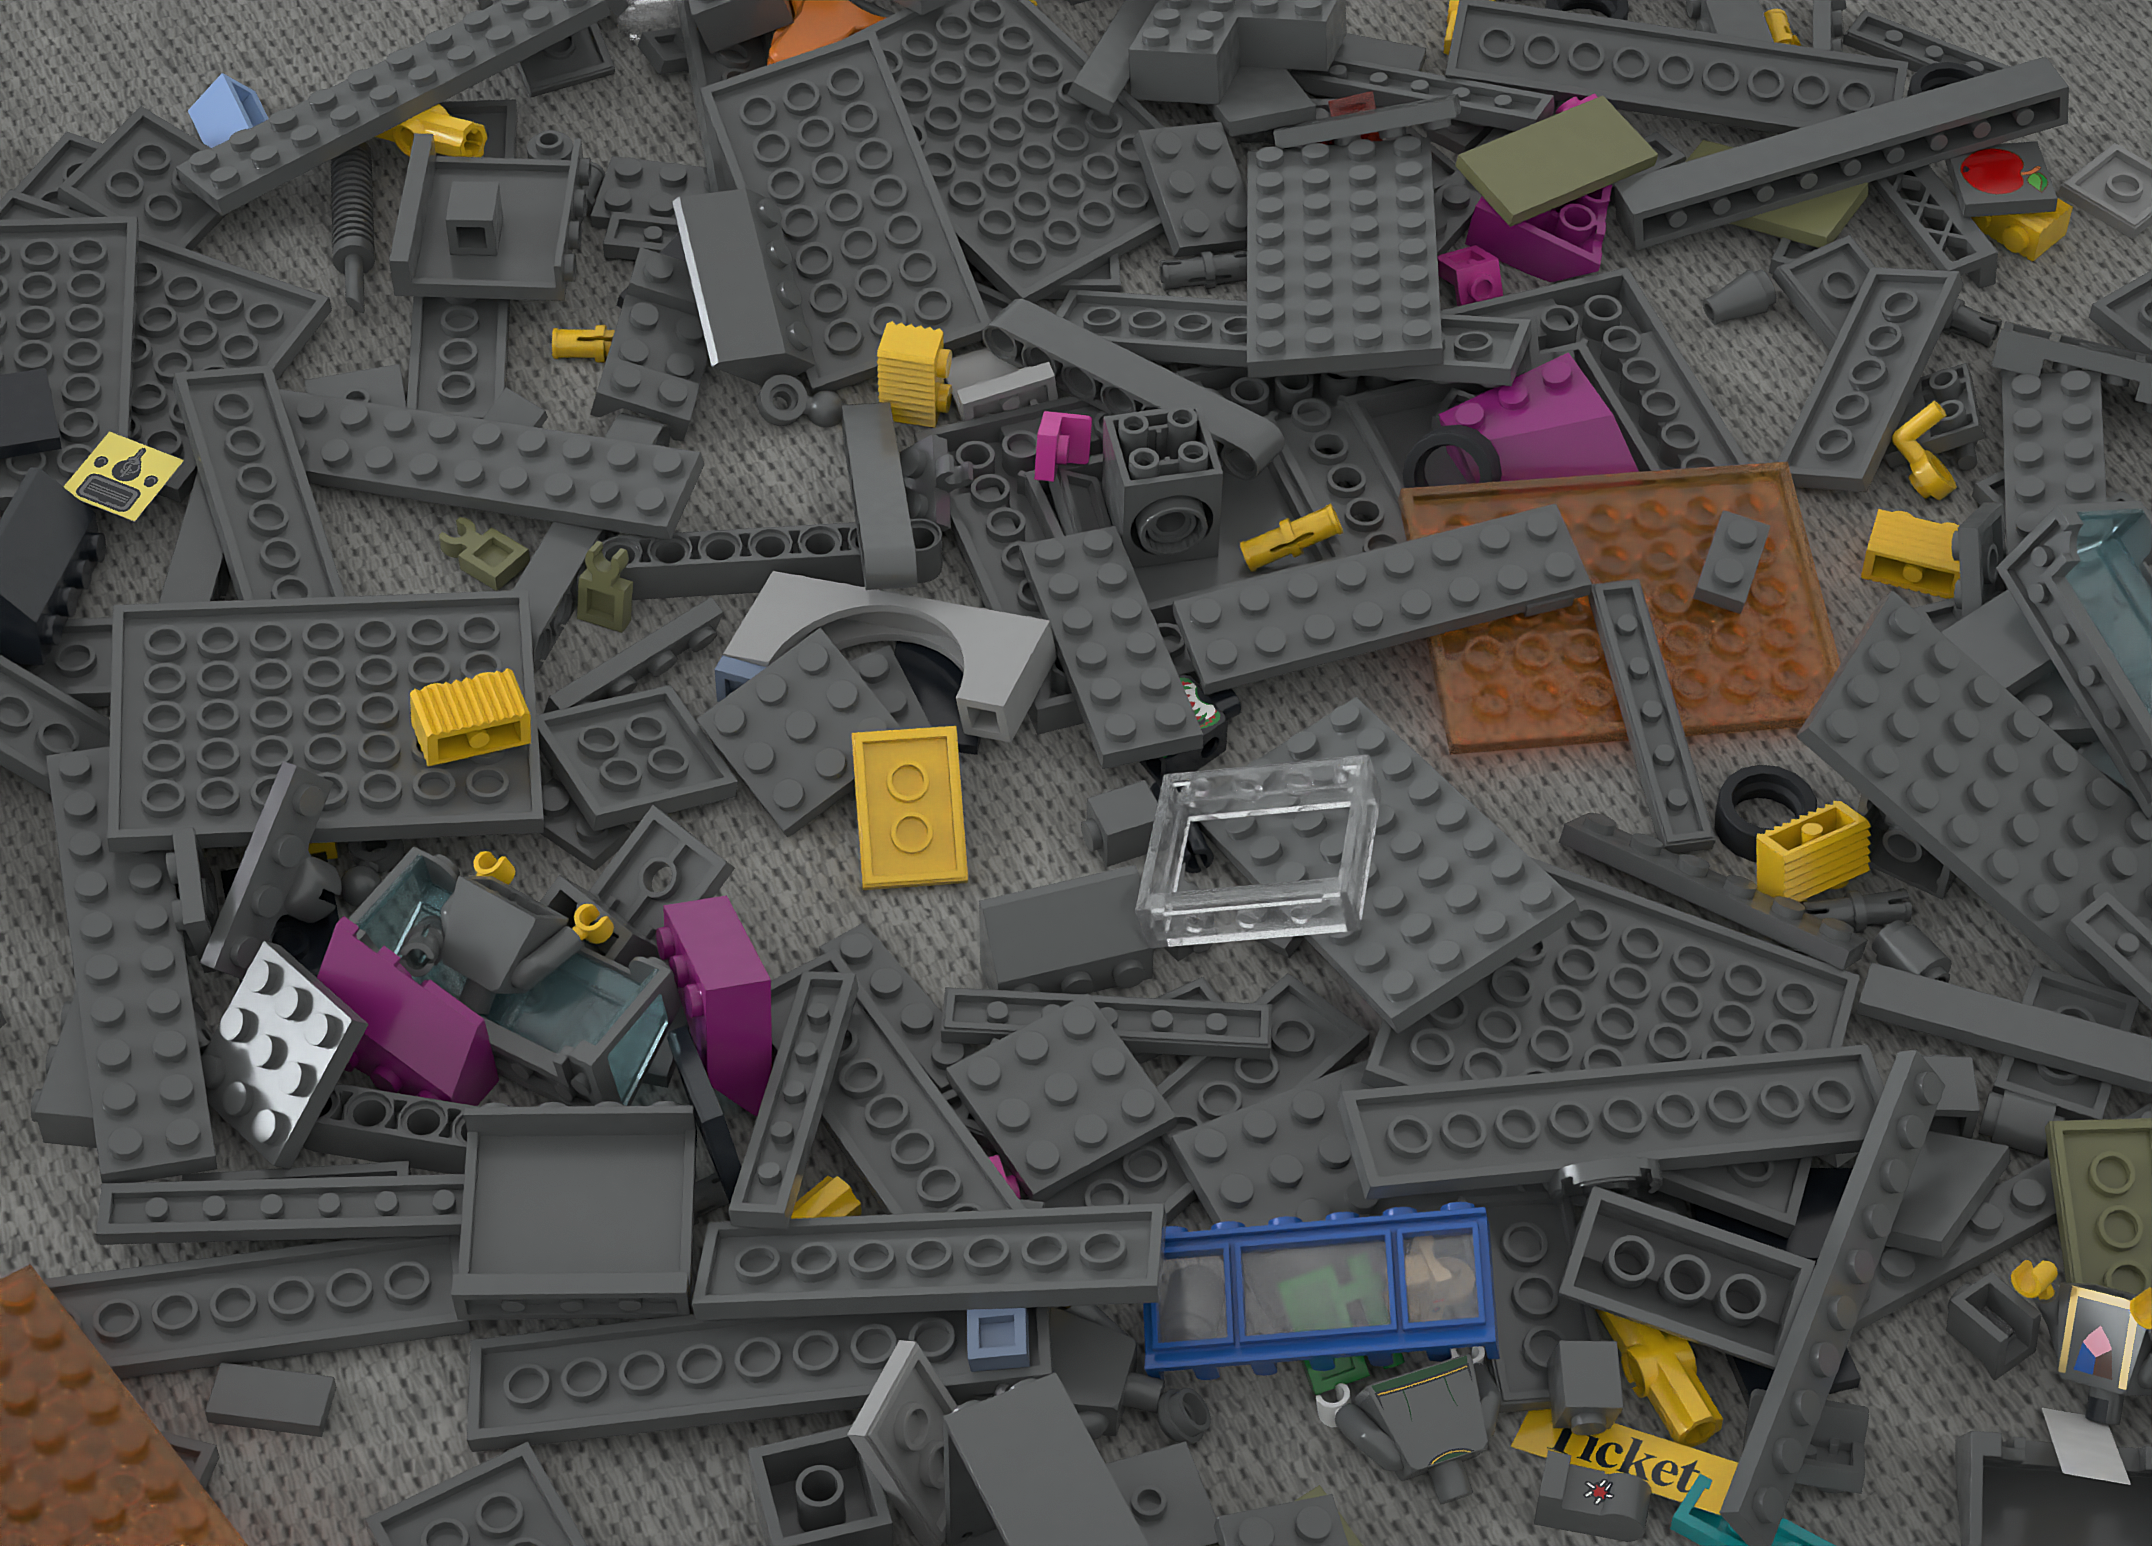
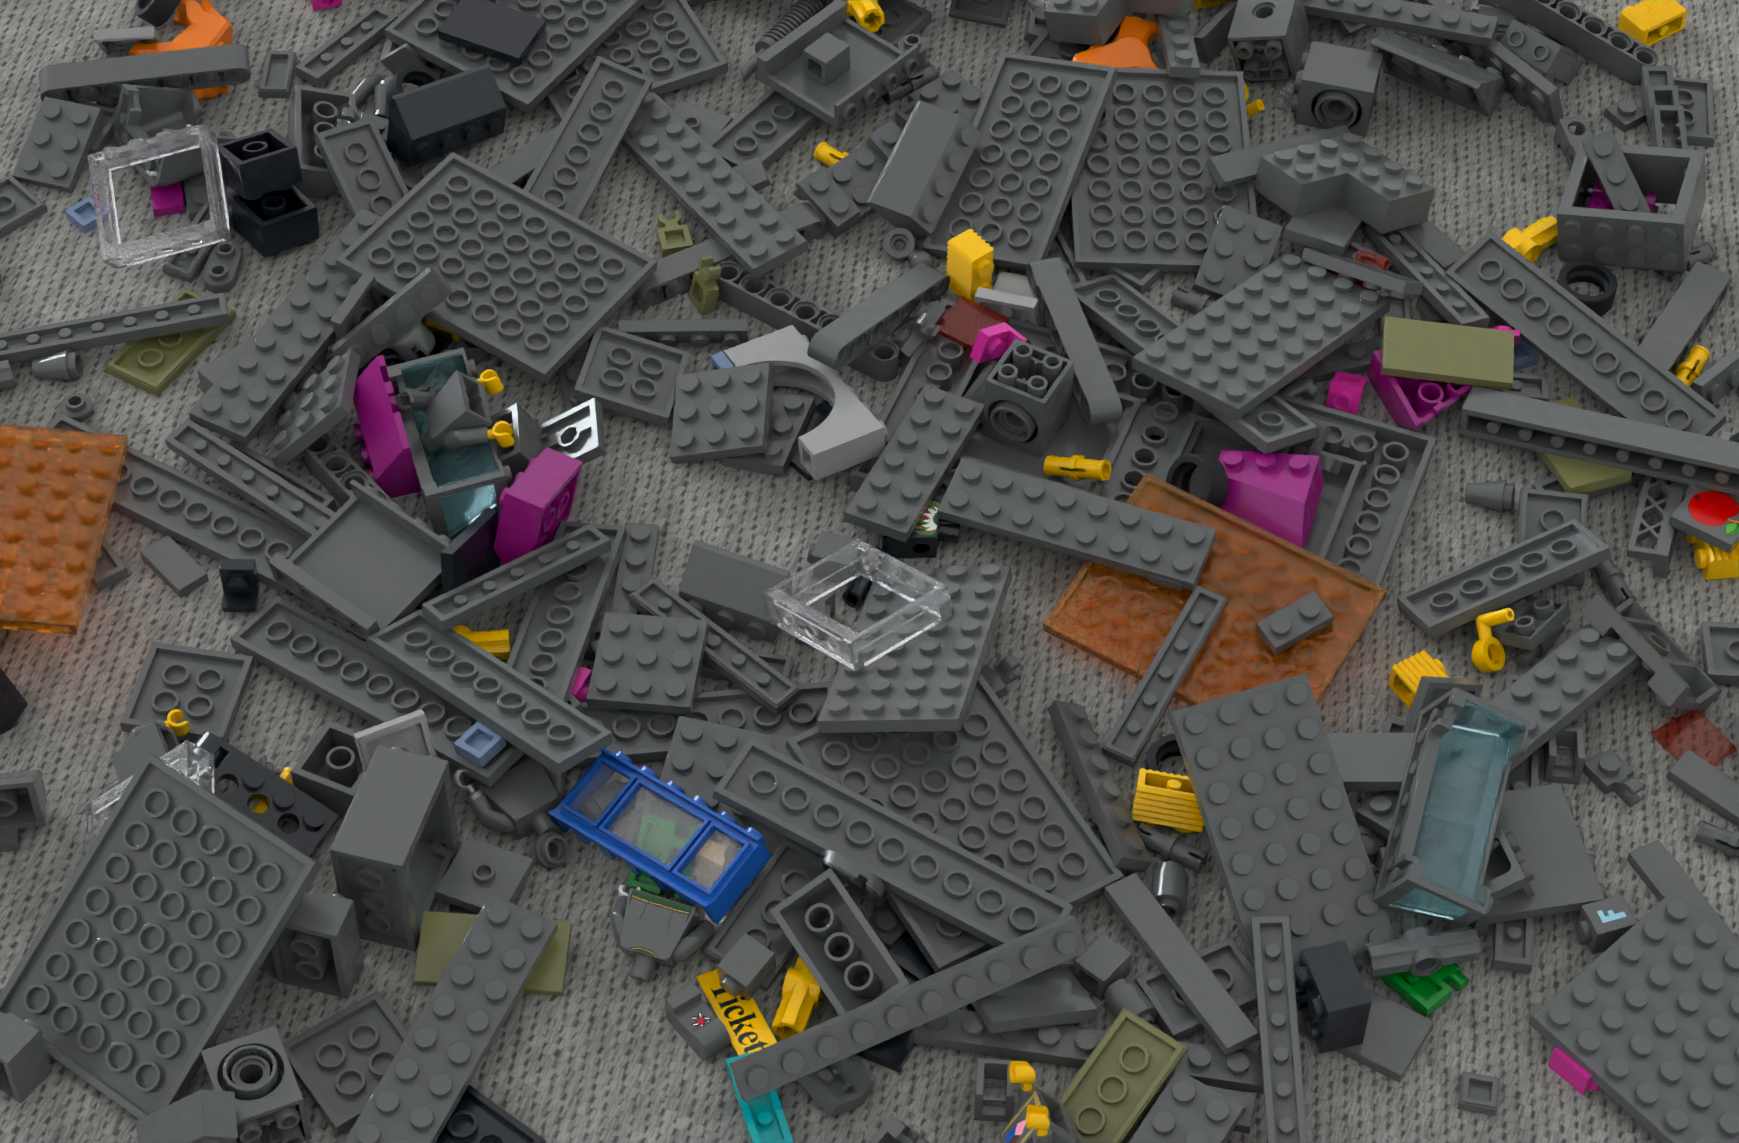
camera: 40 degrees right, 0 degrees up
(122, 476) = (533, 95): sticker -> none
(404, 1362) = (239, 585): none -> black bracket
(470, 717) = (553, 302): yellow brick -> none
(909, 808) = (732, 481): yellow tile -> none
(990, 440) = (965, 320): none -> clear red piece

